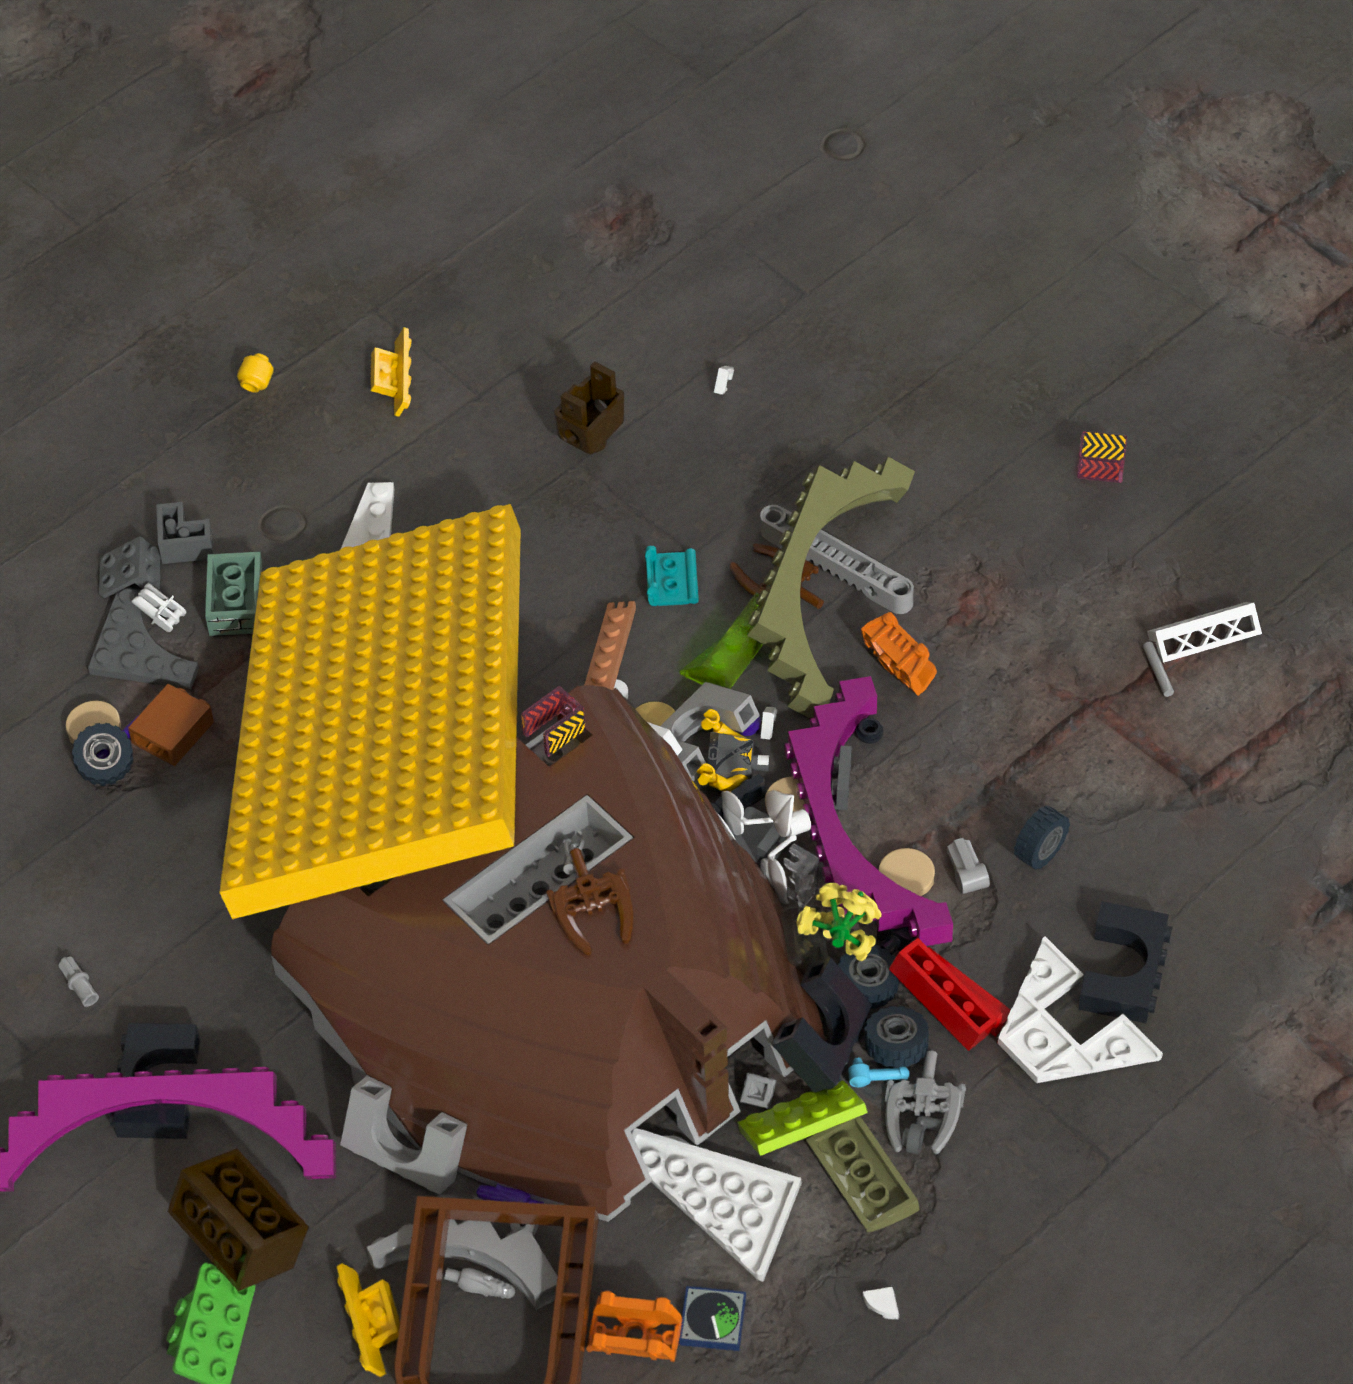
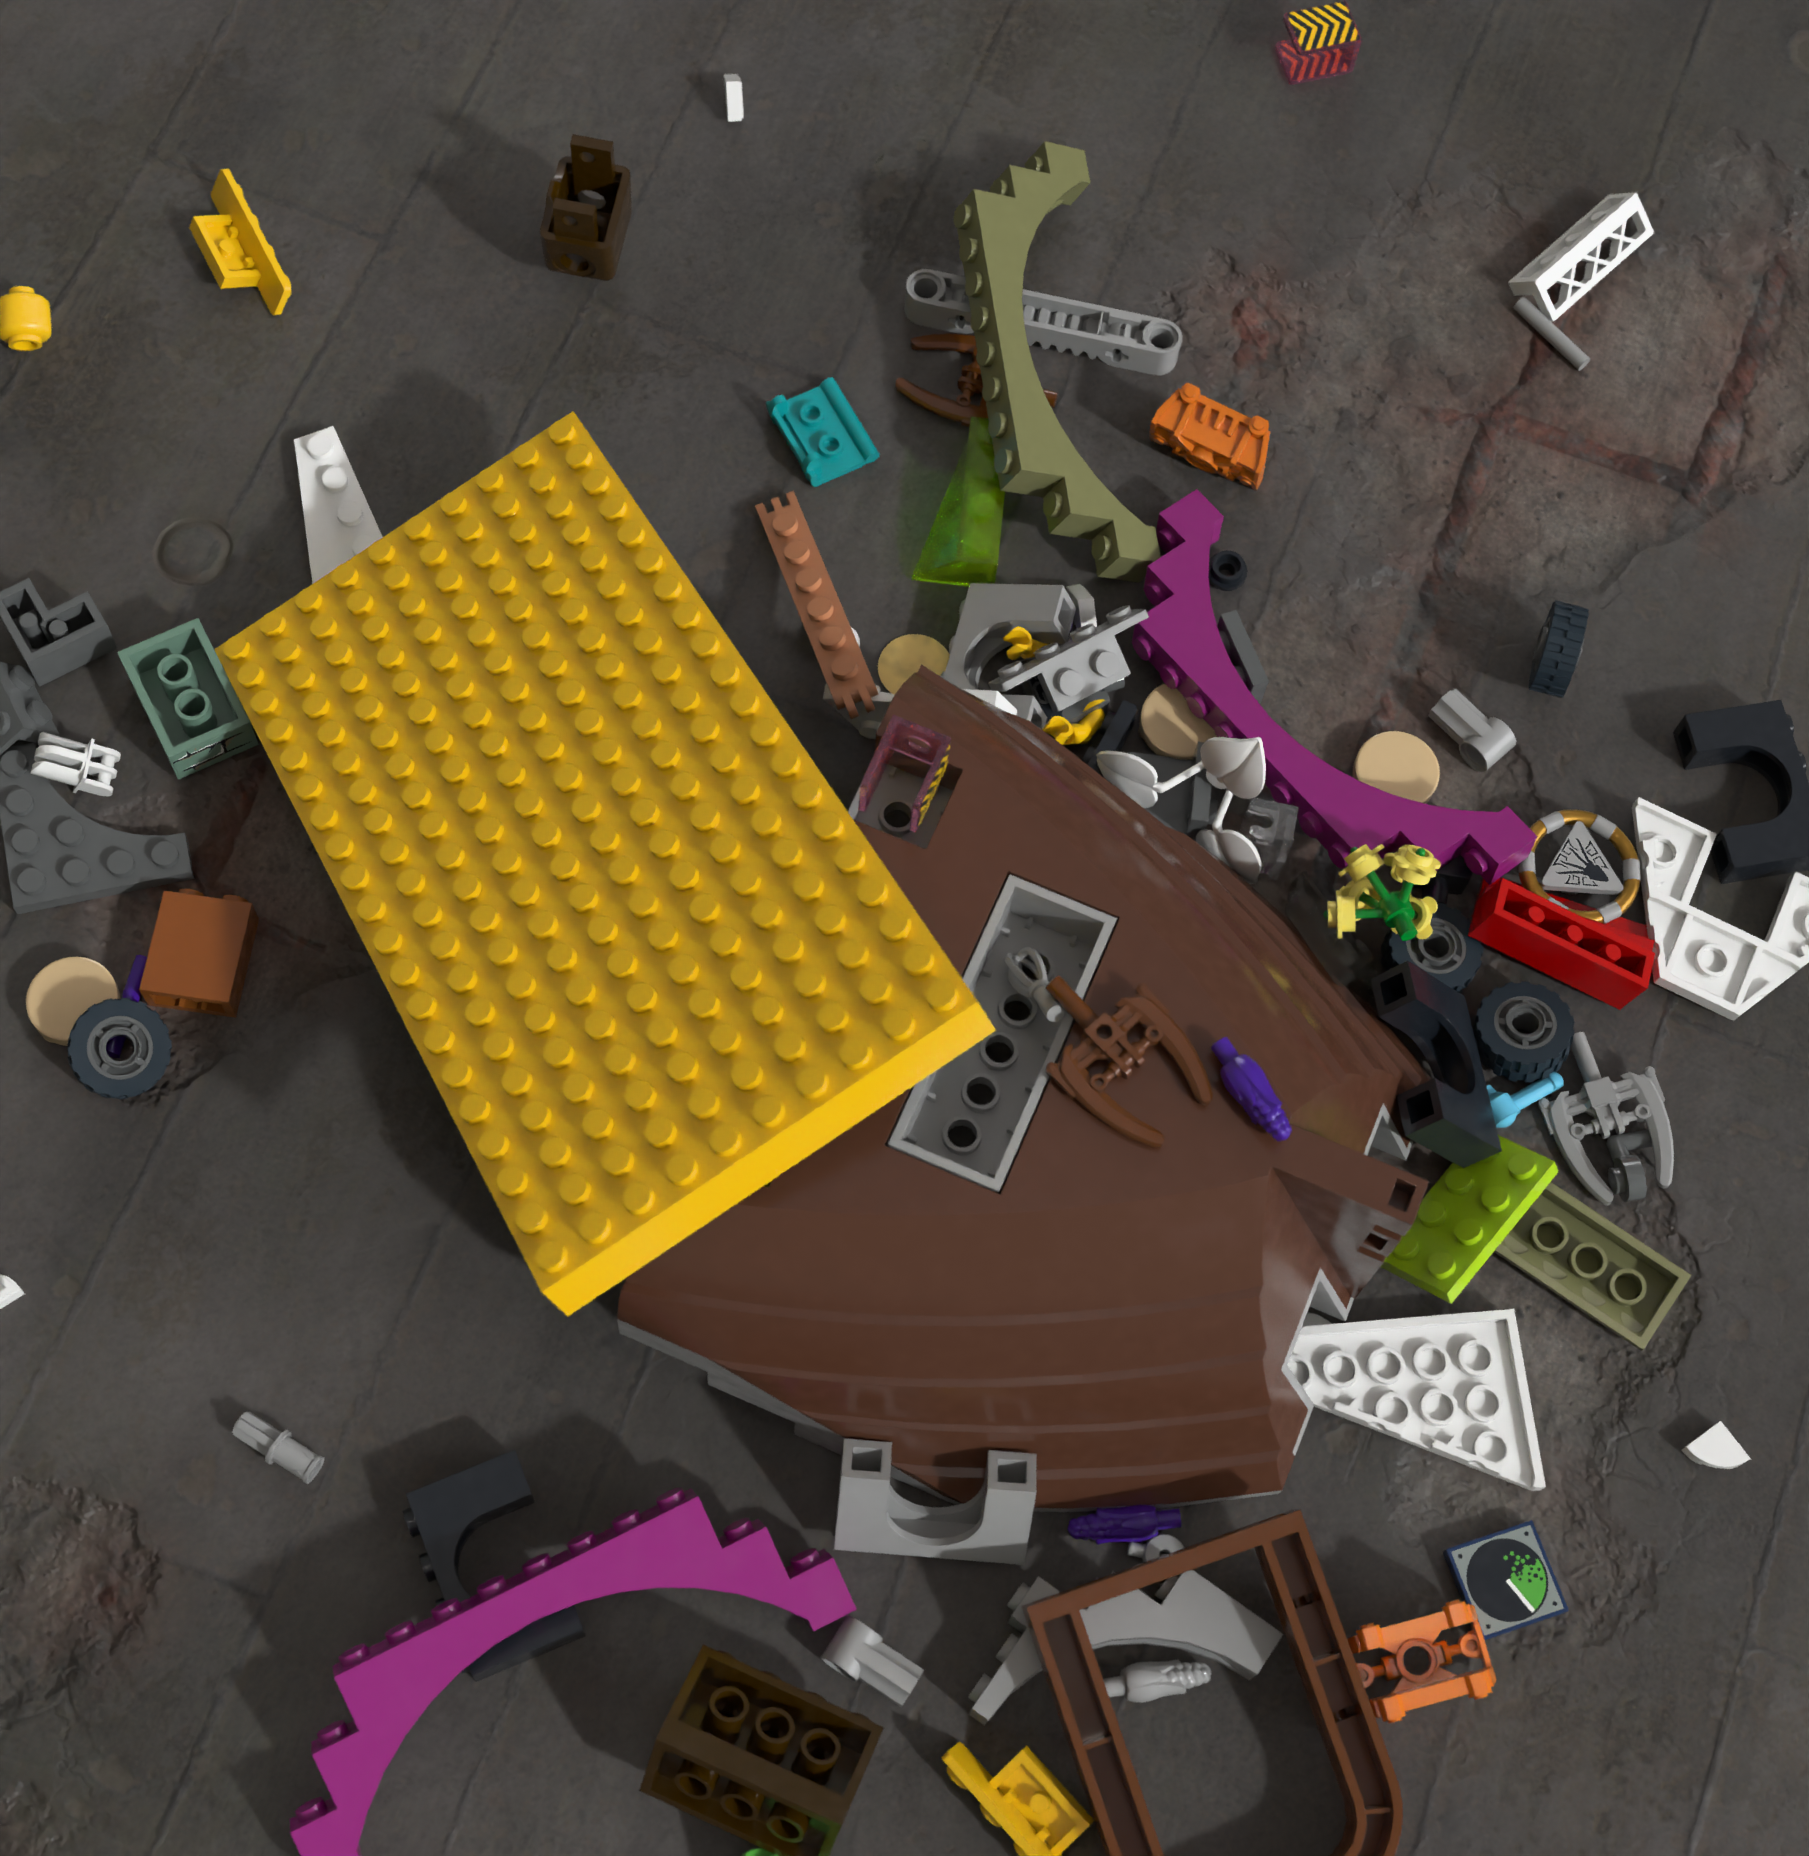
camera: 35 degrees left, 15 degrees up
(327, 1205) = (861, 1655): none -> light grey piece
(651, 941) = (1251, 1089): none -> dark purple piece
(738, 744) = (1078, 666): none -> light grey bracket
(986, 960) = (1582, 866): none -> piece

